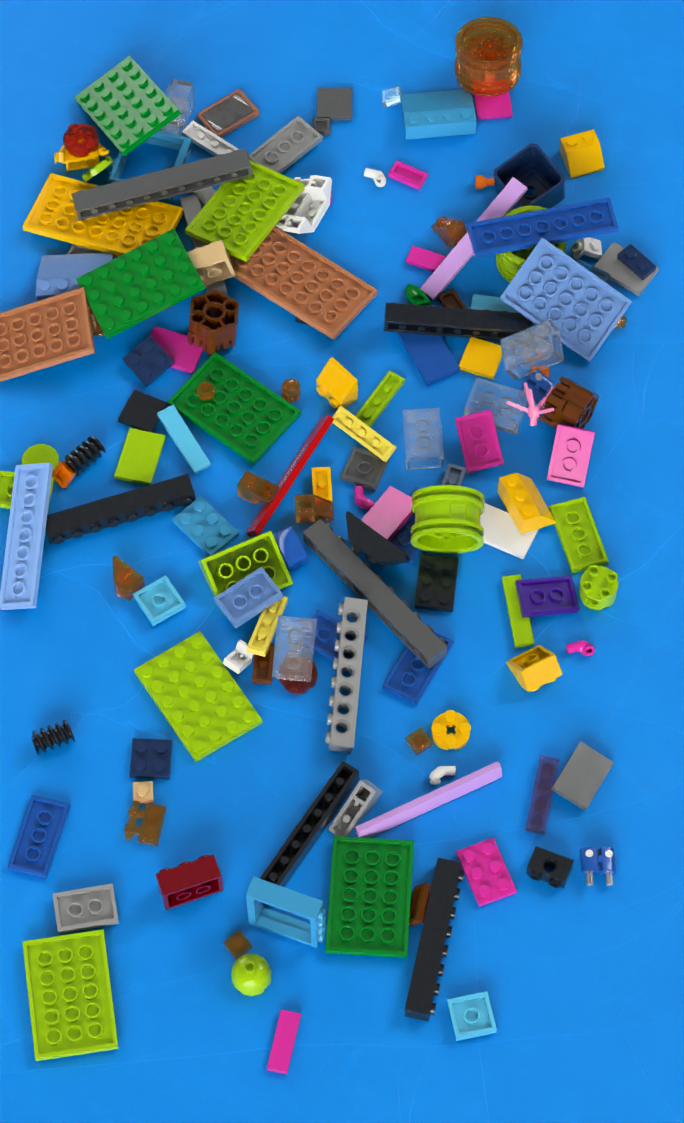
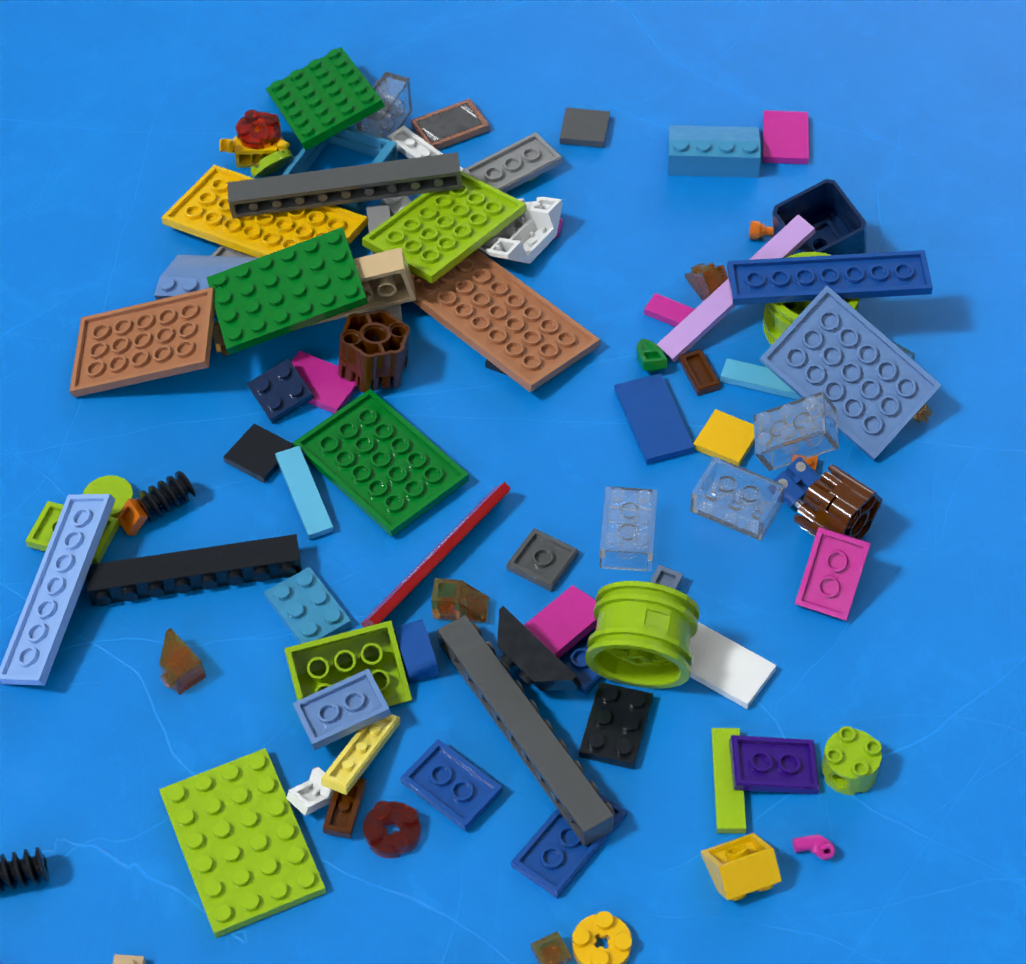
camera: 10 degrees right, 10 degrees down
(140, 457) = (241, 507): lime tile -> none
(151, 758) = (151, 923): dark blue plate -> none
(159, 600) = (219, 698): medium azure plate -> none
(206, 391) = (346, 434): clear orange plate -> none
(256, 489) = (385, 565): clear orange slope -> none
(291, 385) = (461, 447): clear orange wheel -> none
(294, 648) = (391, 789): clear slope -> none
(322, 126) = (565, 149): dark grey tile -> none
(322, 482) = (479, 569): yellow plate -> none
(337, 385) = (523, 447): yellow slope -> none
(357, 609) = (438, 936): light grey brick -> none
(360, 500) = (529, 600): dark pink arm -> none
(363, 434) = (548, 513): light yellow tile -> none
(377, 176) = (624, 210): white arm -> none
(380, 398) = (574, 478): lime tile -> none
(391, 97) = (658, 125): clear light blue plate -> none
(408, 175) = (664, 214): dark pink tile -> none
(453, 321) = (691, 386): black brick -> none
(479, 441) = (706, 540): dark pink tile -> none
(488, 56) = (786, 88): clear orange wheel -> none
(524, 502) = (758, 630): yellow slope -> none
(533, 411) = (786, 508): bright pink plant -> none
(578, 534) = (830, 684): lime tile -> none
(581, 153) = (893, 210): yellow slope -> none
(588, 247) = (889, 319): white bracket -> none
(621, 273) = (939, 351): light grey tile -> none
(636, 262) = (952, 343): dark blue plate -> none

